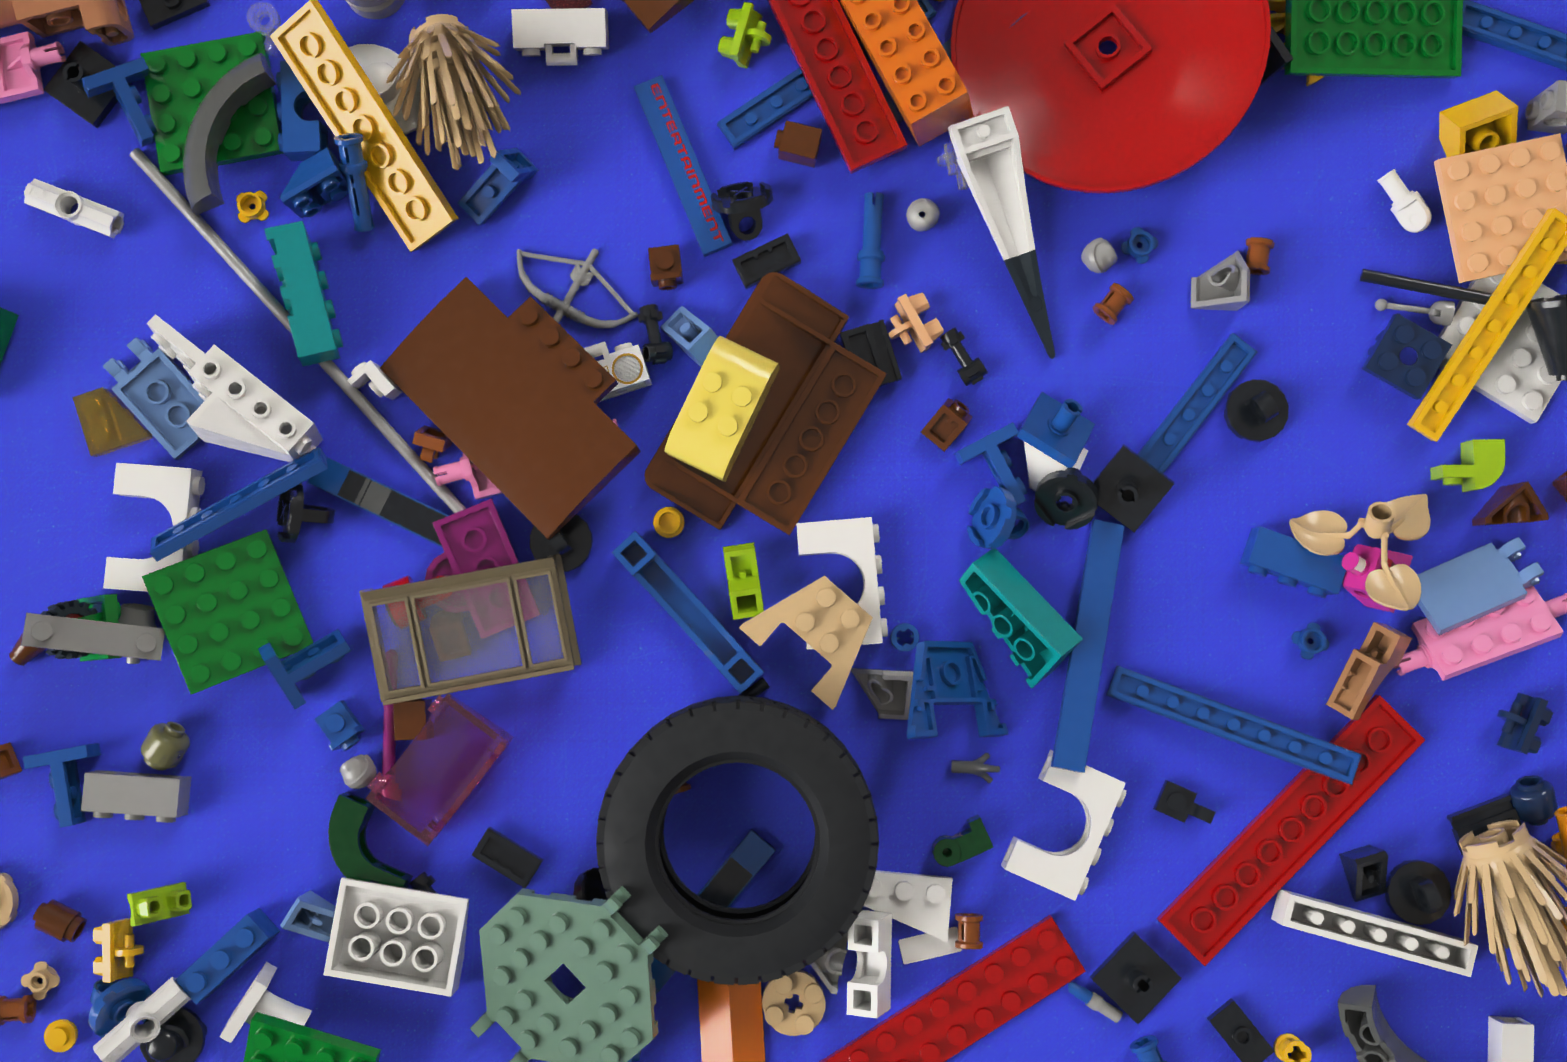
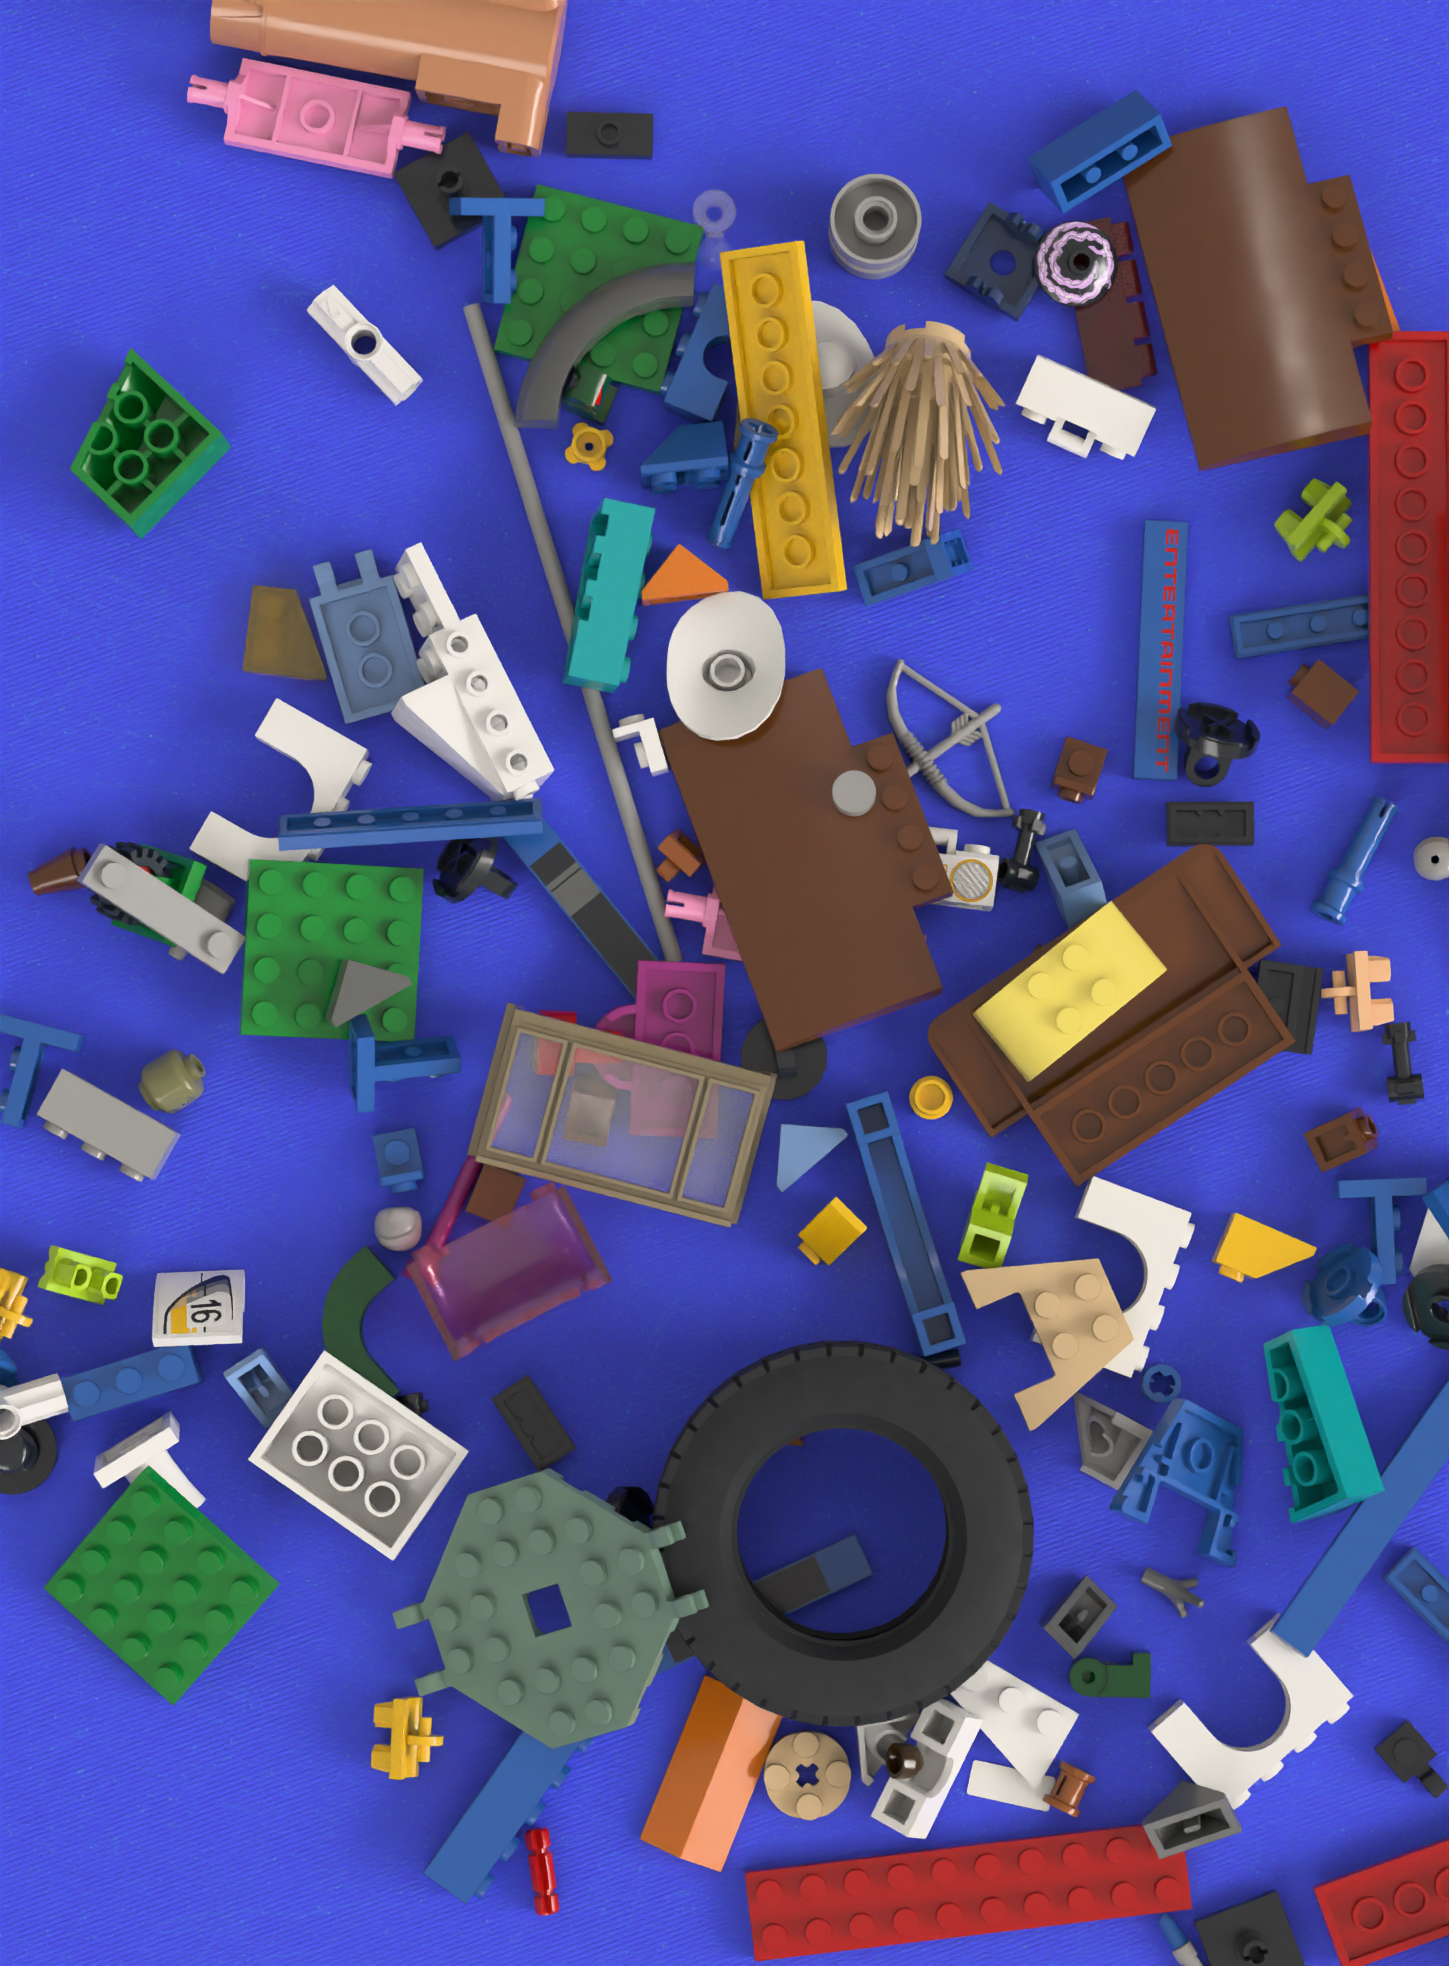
camera: 20 degrees right, 0 degrees up
(233, 171) = (590, 394): none -> dark green leg
(248, 888) = (198, 1308): none -> white slope
(255, 626) = (359, 989): none -> dark grey slope
(350, 263) = (682, 579): none -> orange slope
(401, 304) = (726, 665): none -> white hat
(521, 346) = (854, 793): none -> light grey tile
(599, 596) = (801, 1149): none -> medium blue slope
(642, 641) = (830, 1233): none -> yellow slope
(851, 967) = (903, 1760): none -> dark brown hinge
(922, 816) = (1078, 1616): none -> dark grey slope
(925, 521) = (1256, 1249): none -> yellow slope
(1057, 915) = (1190, 1819): none -> dark grey slope

